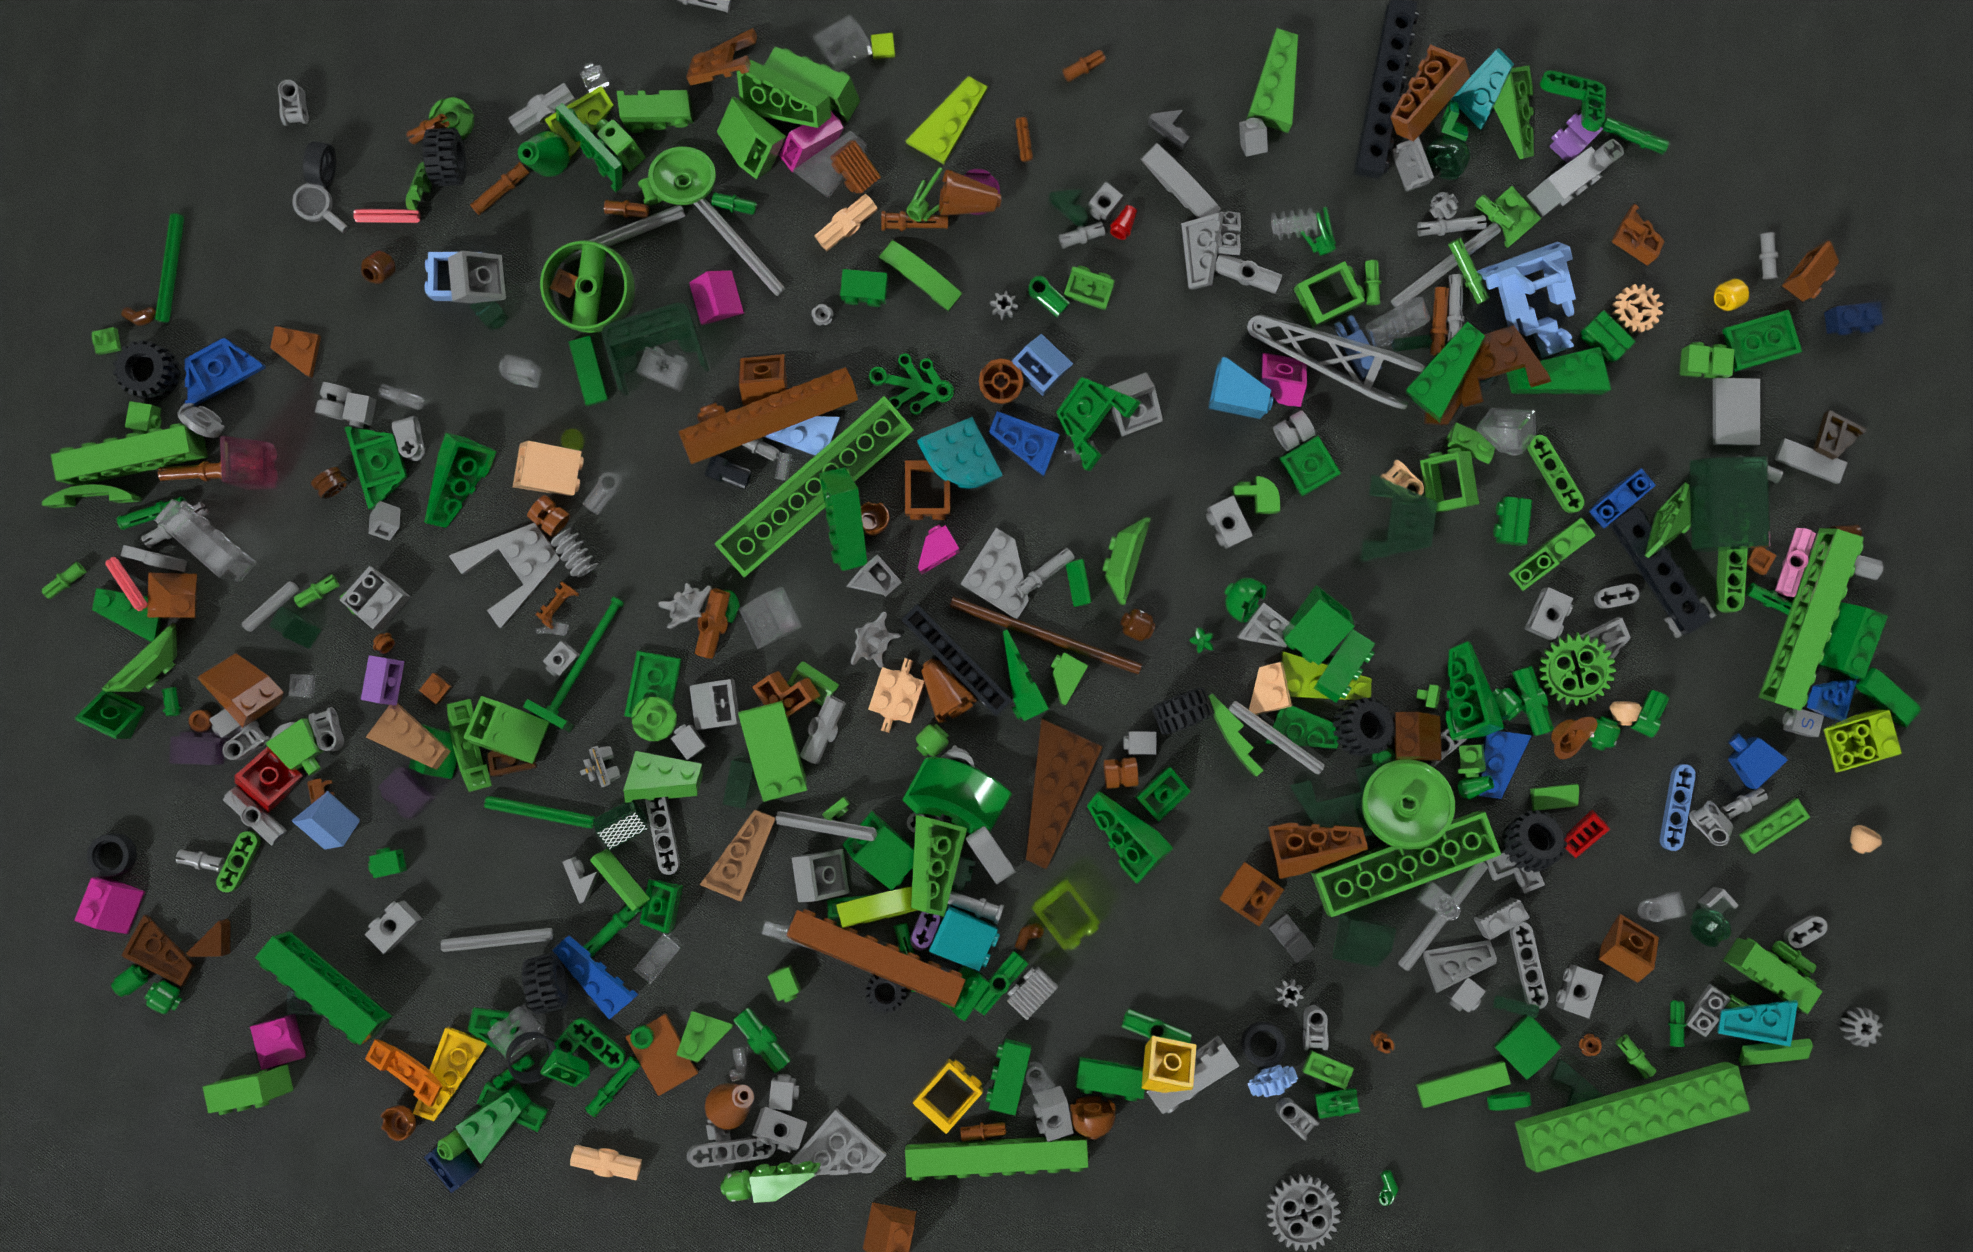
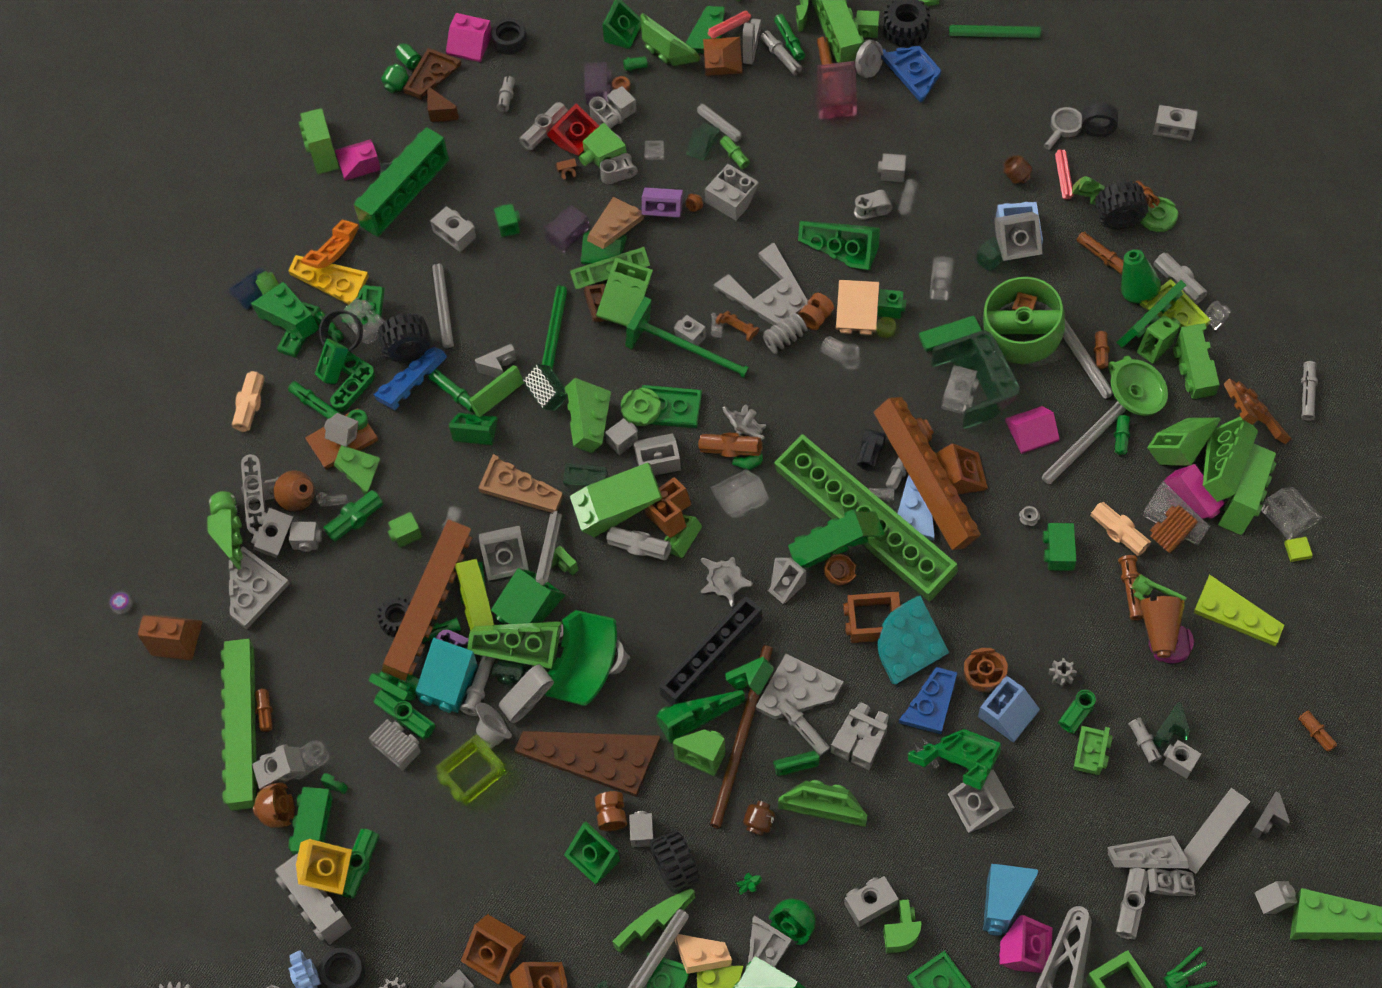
camera: 90 degrees right, 25 degrees down
(139, 318) = (950, 16): reddish brown arm -> none
(205, 541) = (767, 70): clear wedge -> none
(240, 843) = (500, 113): bright green beam -> none
(242, 689) = (647, 106): dark orange slope -> none
(292, 108) = (1148, 99): light grey piece -> none
(297, 348) = (939, 122): dark orange wing -> none
(326, 406) = (898, 146): light grey wheel -> none
(327, 822) = (541, 174): medium blue slope -> none
(329, 483) = (827, 151): reddish brown wheel -> none
(332, 90) = (1175, 122): none -> light grey brick
(377, 463) = (846, 185): green wing -> none
(384, 520) = (799, 193): light grey panel -> none
(398, 1122) = (288, 246): dark orange hair -> none
(435, 688) = (658, 243): dark orange plate -> none
(545, 429) = (891, 304): none -> green brick
(604, 775) = (588, 373): light grey hips -> none
(657, 958) = (426, 428): clear plate -> none
(658, 832) = (541, 427): light grey beam -> none
(658, 1055) = (341, 429): none -> light grey brick
(896, 695) = (675, 606): light nougat plate -> none
(915, 384) = (973, 602): green plant -> none
(921, 274) = (1079, 598): bright green slope -> none
(932, 740) = (633, 637): bright green head -> none
(933, 1112) = (285, 662): yellow window -> none
(937, 548) = (815, 624): dark pink slope -> none
(945, 691) = (676, 644): dark orange cone -> none
(987, 618) = (752, 674): none -> green slope
(1008, 1076) = (305, 727): green brick -> none
(1019, 891) = (491, 726): none -> light grey piece
(1024, 139) = (1231, 681): dark orange axle -> none
(1026, 933) = (451, 737): reddish brown arm -> none
(1052, 510) = (862, 739): none -> light grey hips
(1069, 1055) = (329, 782): none -> green tile
(1123, 224) = (1164, 779): red cone -> none
(1135, 841) = (541, 834): green wedge -> none
(1294, 224) = (1190, 944): clear piece -> none
(1296, 429) = (974, 960): light grey wheel -> none

